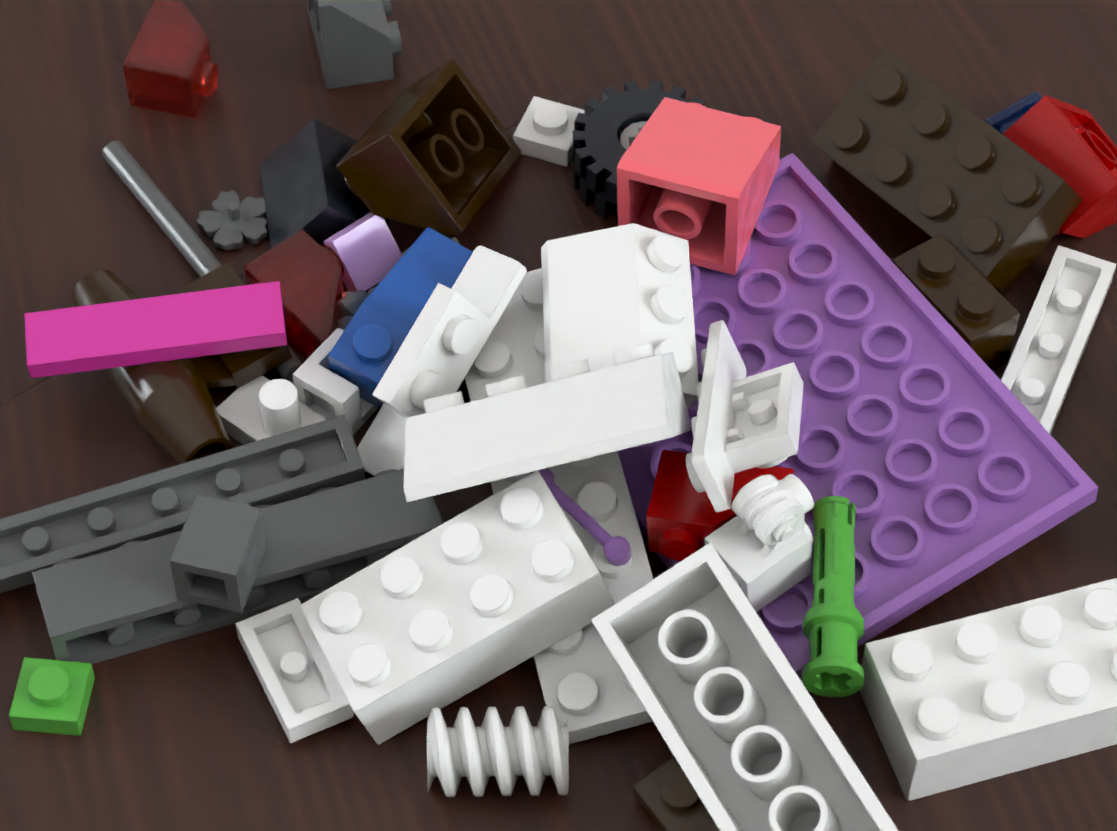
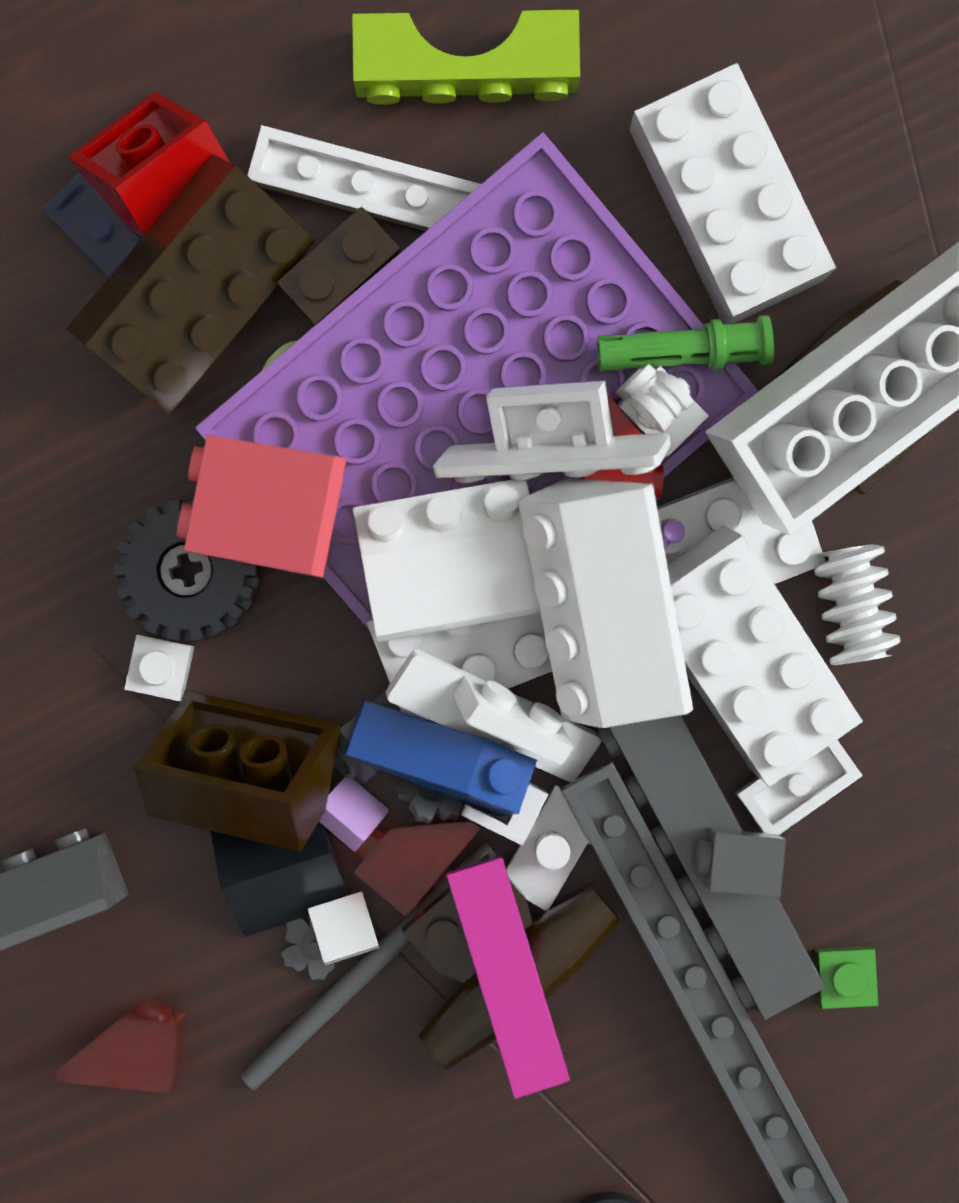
camera: 100 degrees left, 35 degrees up
(244, 230) = (343, 928): none -> white tile

